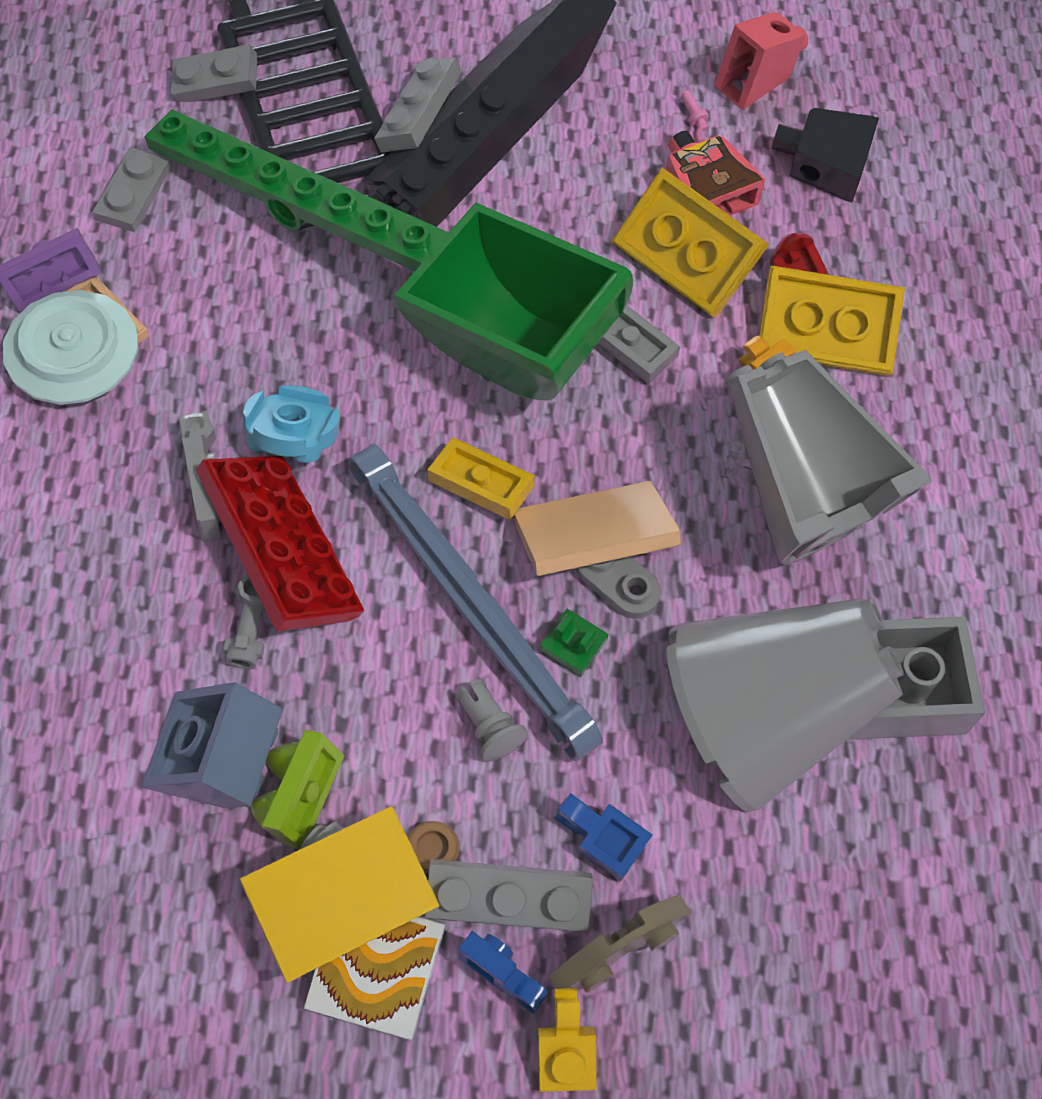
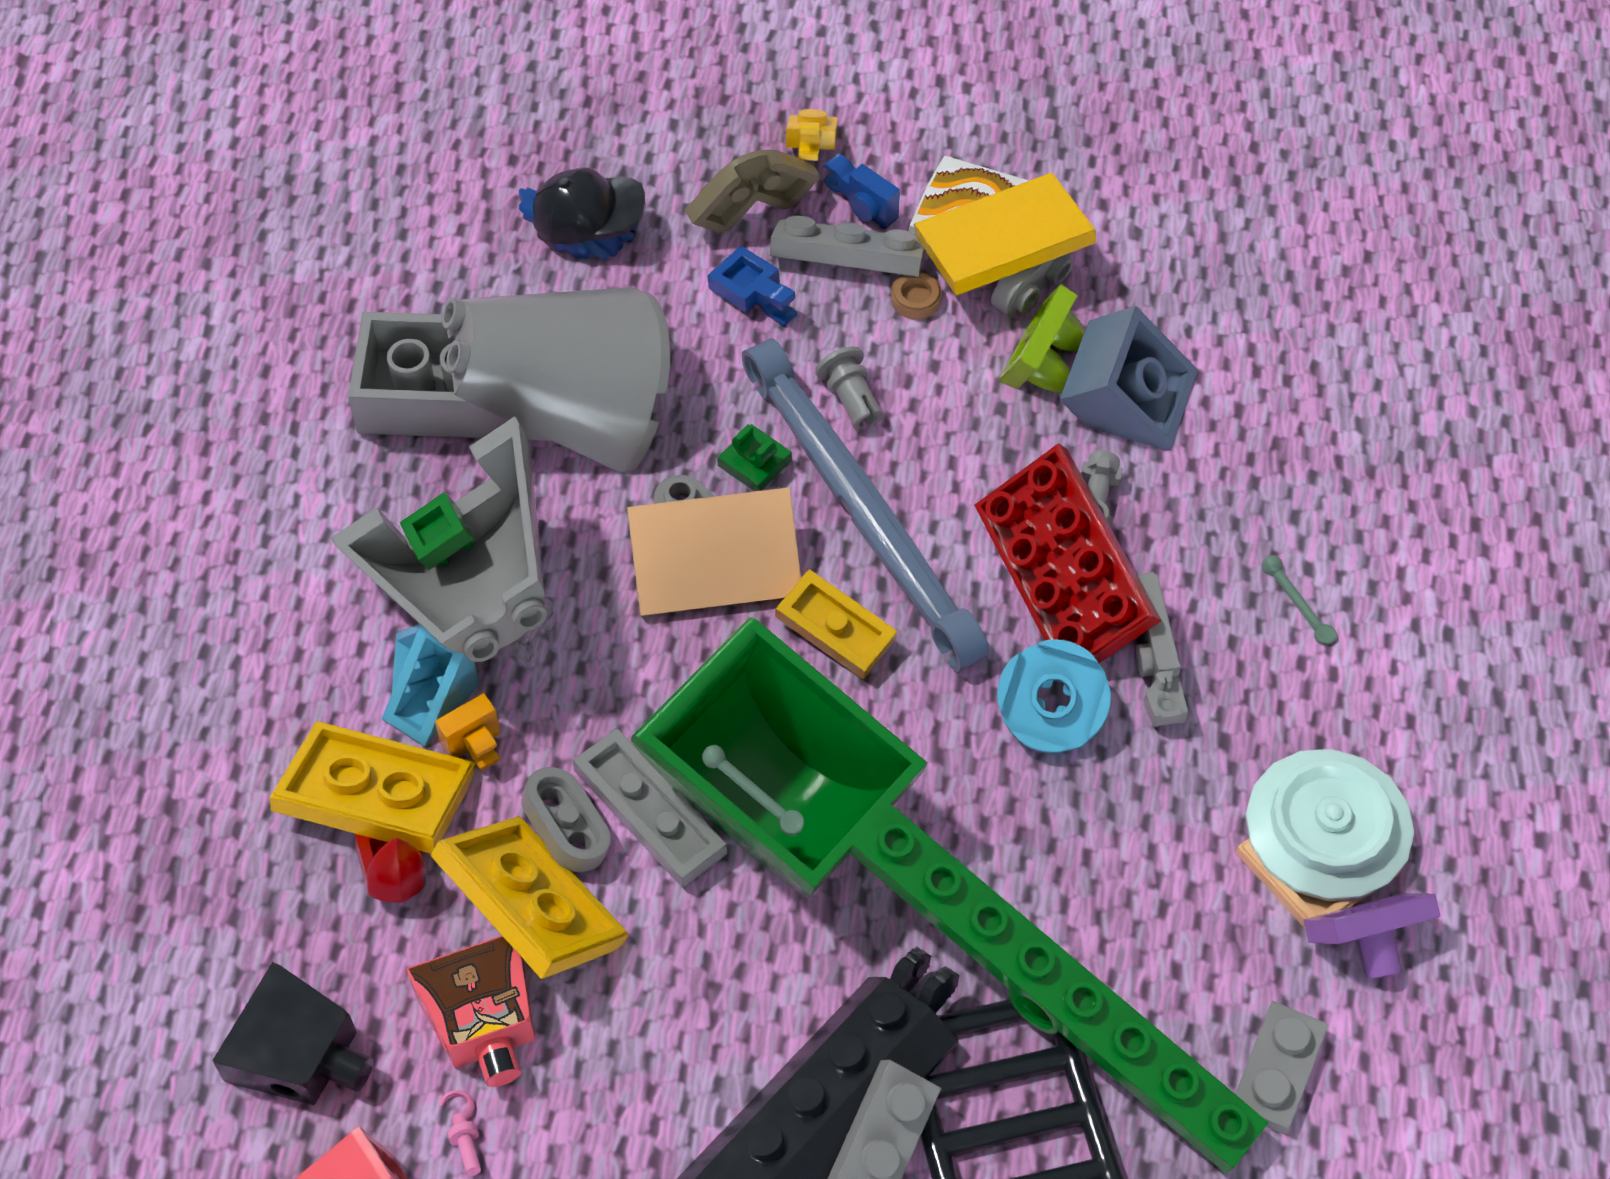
camera: 170 degrees left, 5 degrees down
(89, 577) = (1324, 633): none -> sand green hinge
(497, 228) = (790, 821): none -> sand green hinge
(678, 310) = (568, 823): none -> light grey plate
(798, 907) = (585, 212): none -> black hair
(841, 496) = (437, 531): none -> green tile

